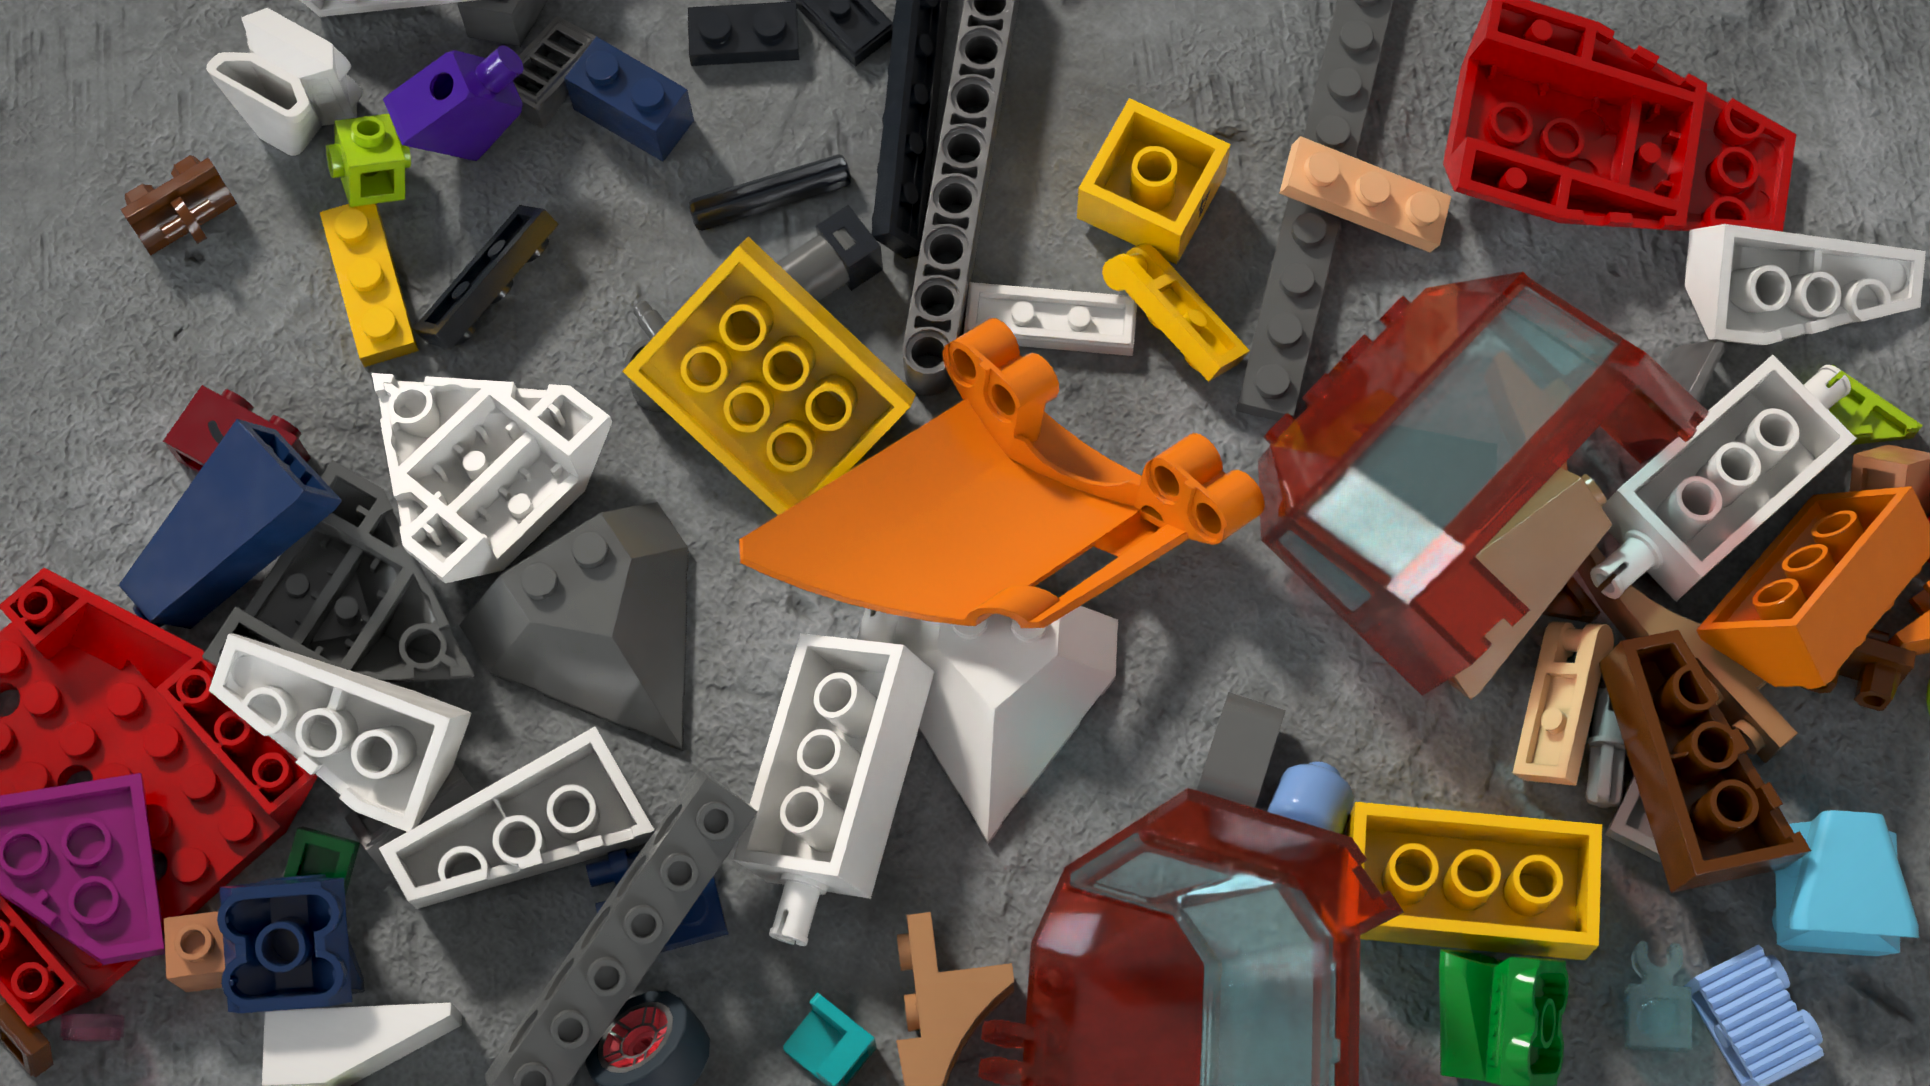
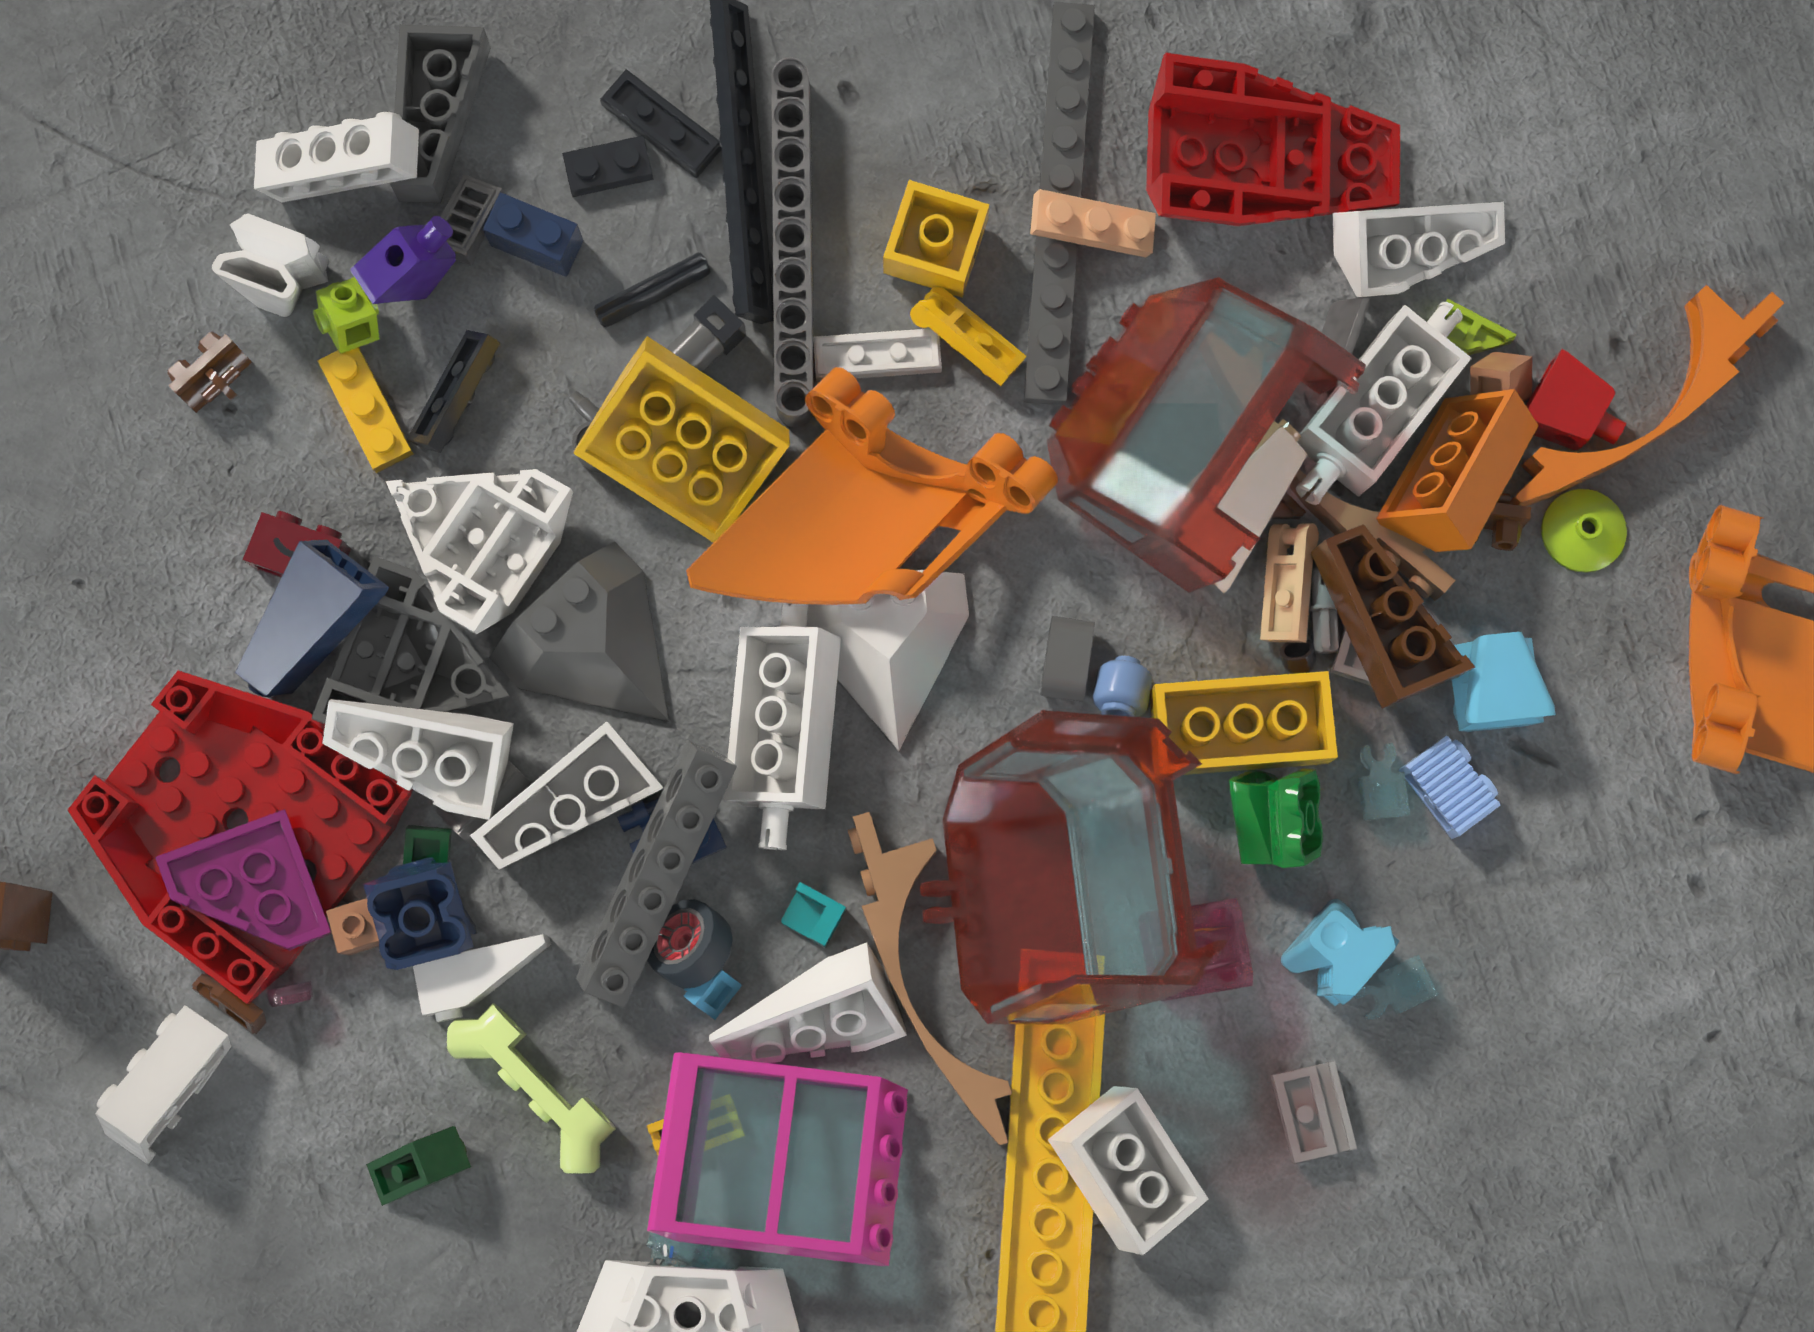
camera: 15 degrees left, 10 degrees up
(1563, 802) = (1298, 656): none -> black hinge

